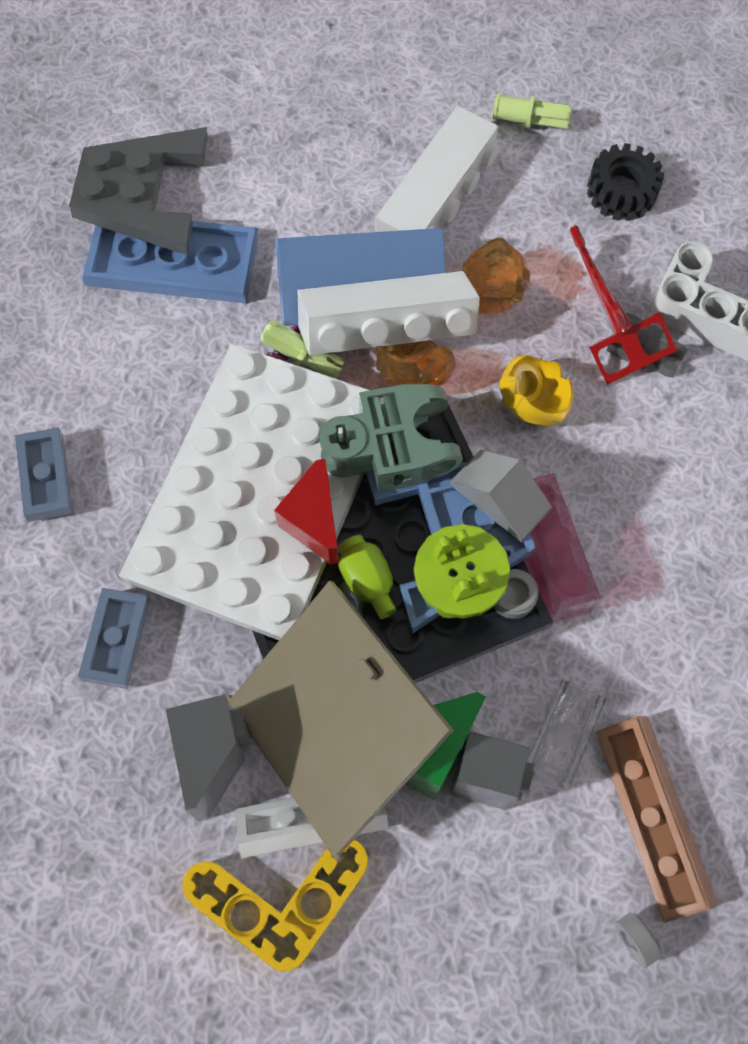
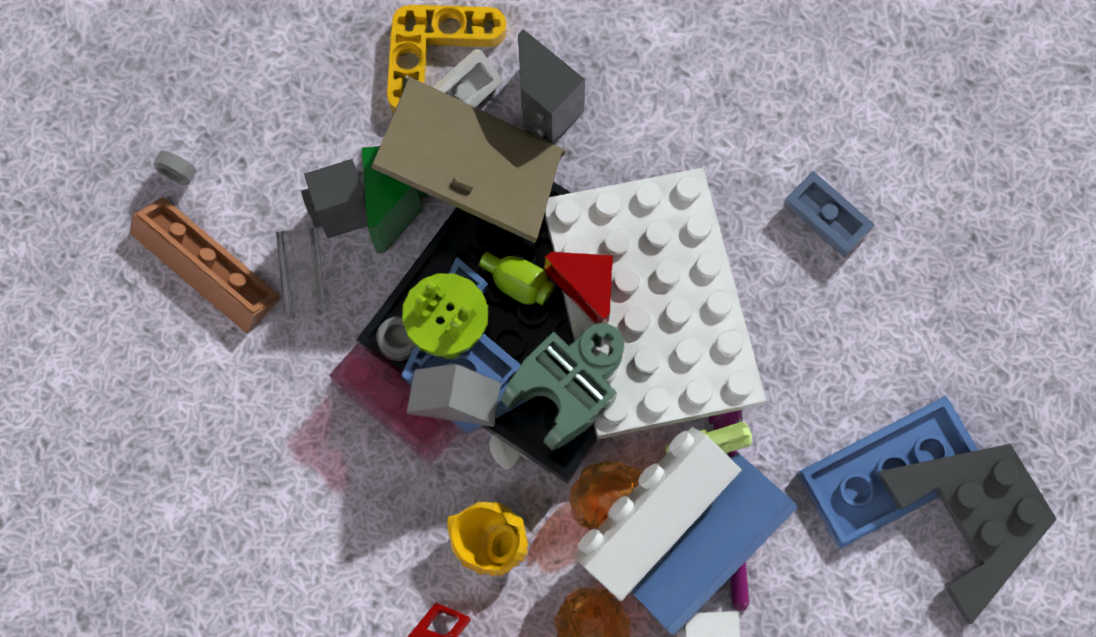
camera: 150 degrees right, 5 degrees up
(114, 638) = (675, 132): sand blue plate -> none

